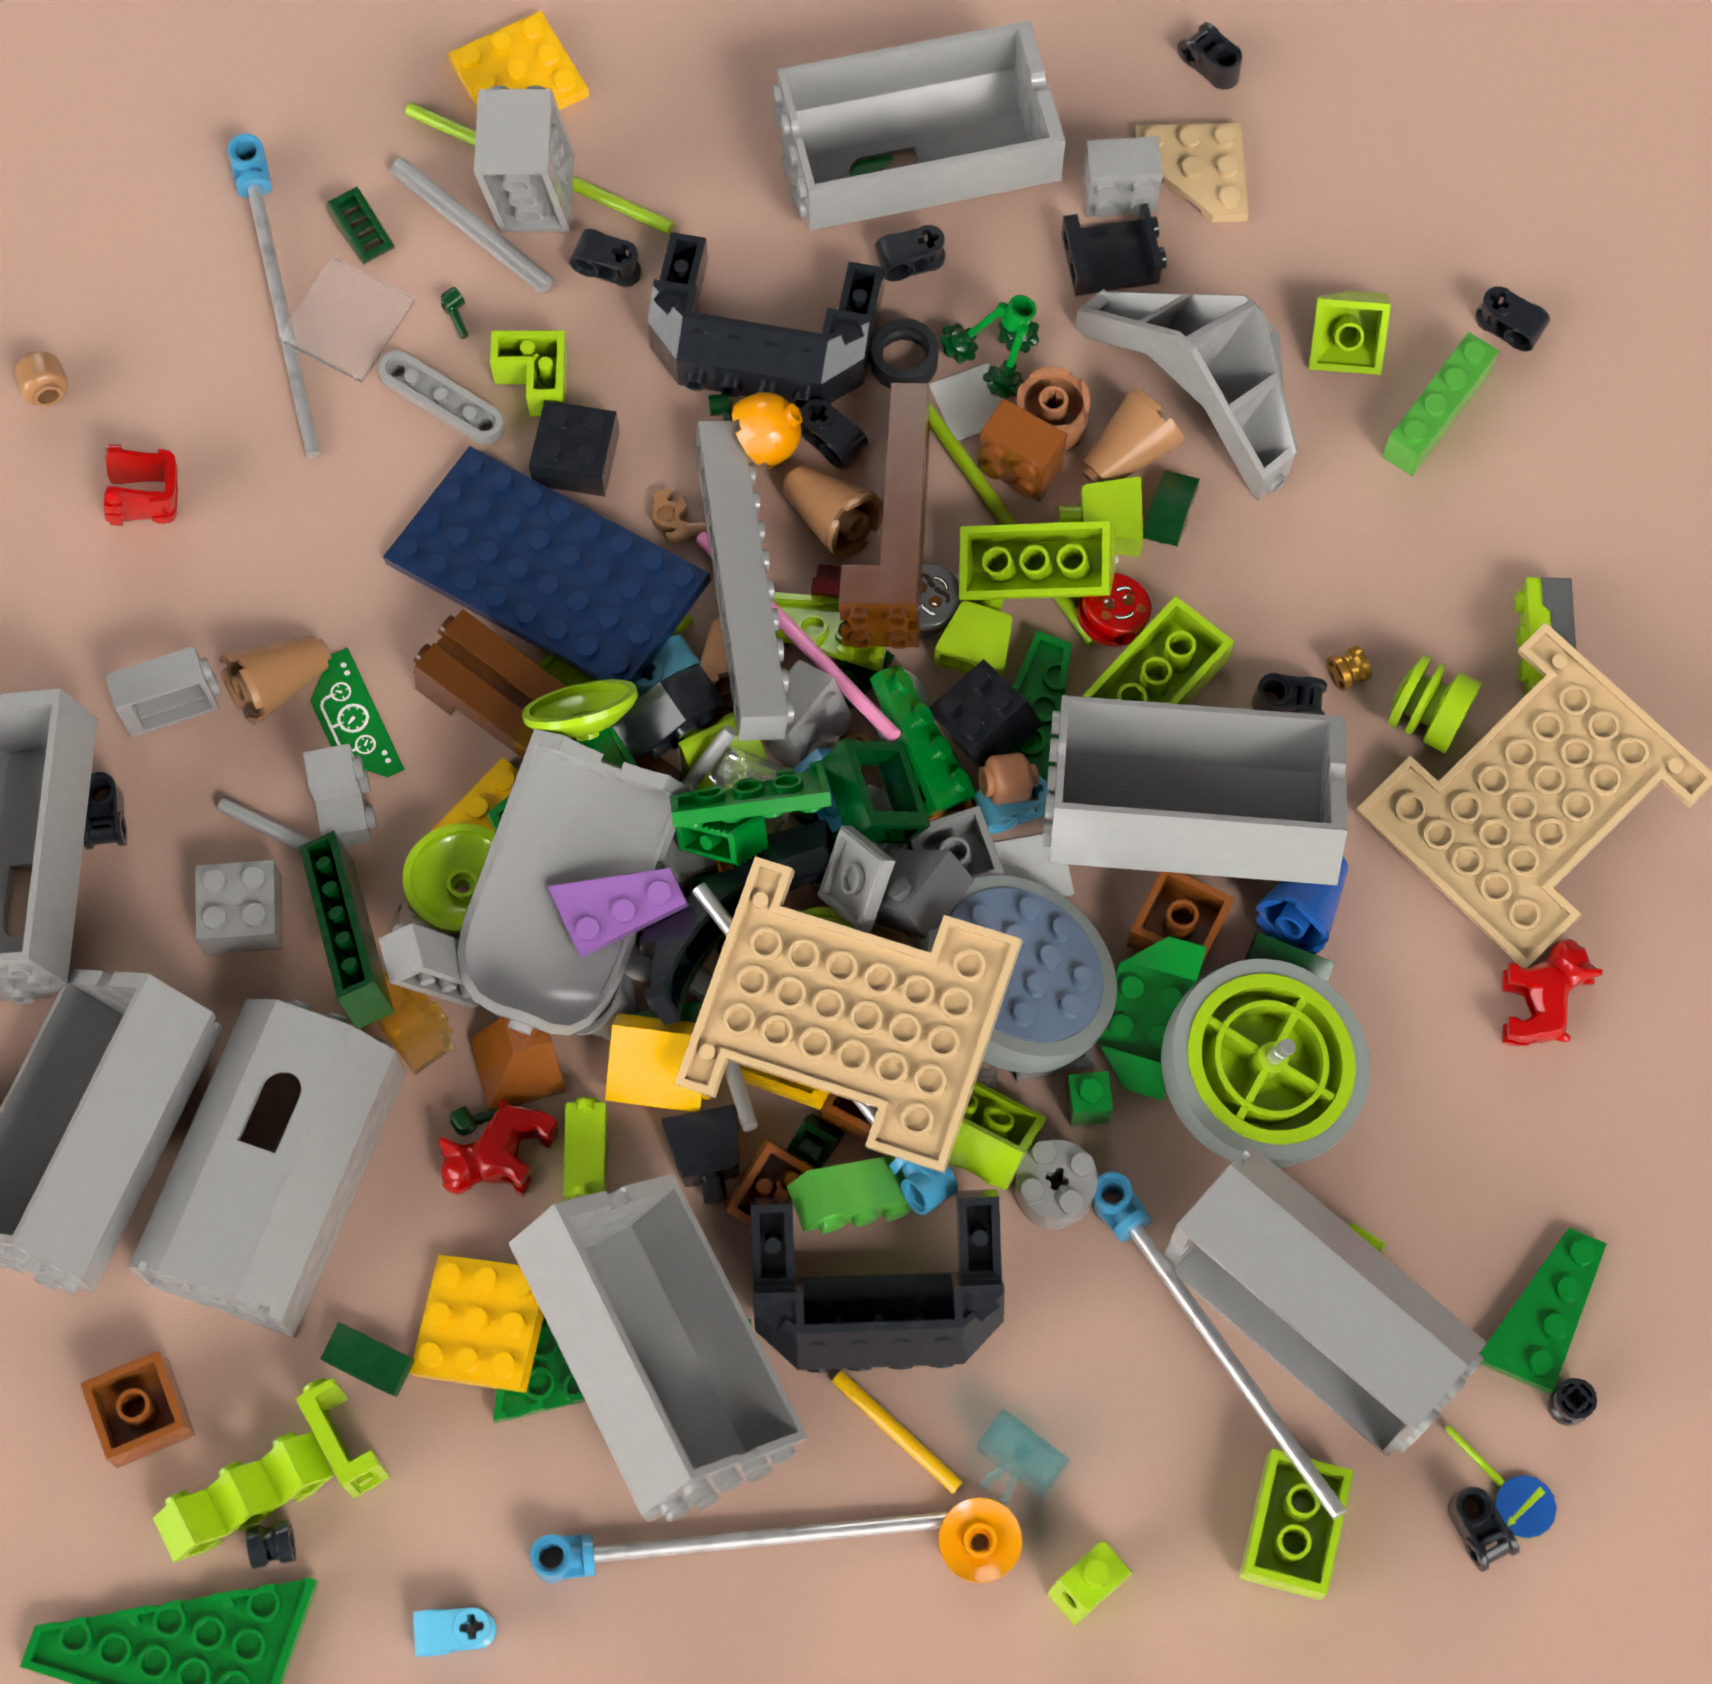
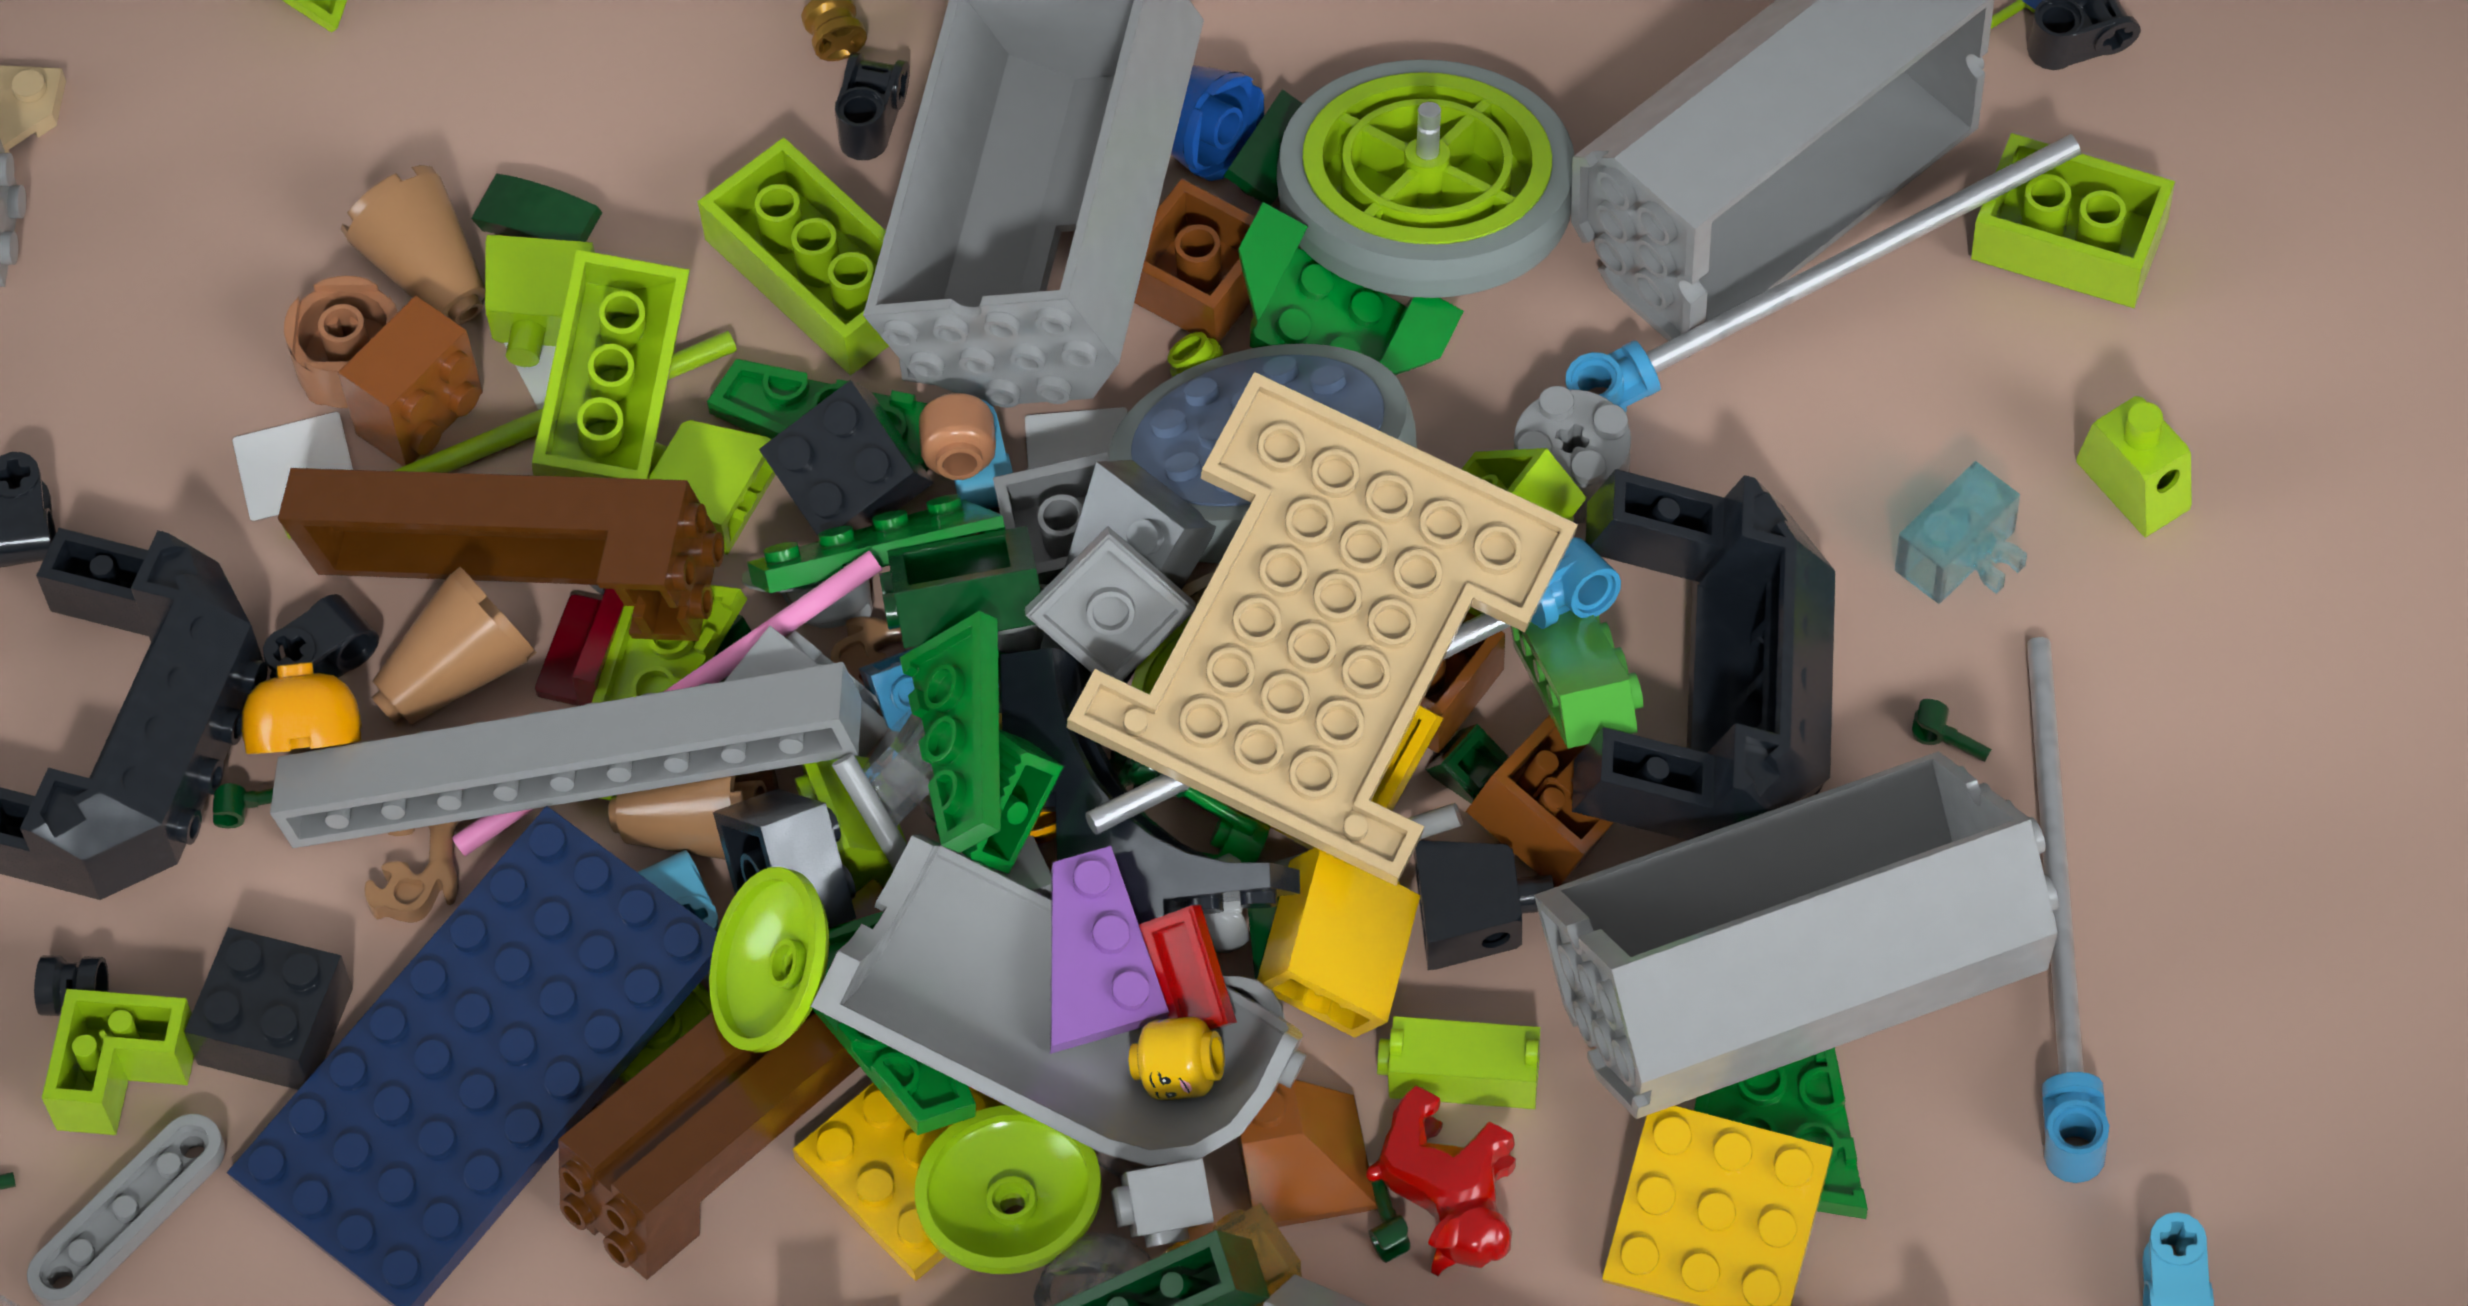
camera: 80 degrees left, 10 degrees down
(549, 965) = (1177, 1058): none -> yellow head
(585, 338) = (56, 975): none -> black wheel
(607, 964) = (1188, 967): none -> red tile
(874, 1447) = (1931, 729): none -> dark green hand
(897, 1432) = (1914, 691): yellow bar -> none
(904, 330) = (202, 502): black tyre -> none
(982, 1518) = (2077, 576): light orange dish -> none
(1015, 330) = (202, 383): dark green plant -> none
(1089, 1098) = (1448, 404): green brick -> none
(1112, 929) = (1192, 351): none -> lime plate
(1113, 254) = (84, 247): black panel -> none
(1117, 617) = (713, 298): red head -> none
(1222, 357) = (304, 100): light grey panel -> none

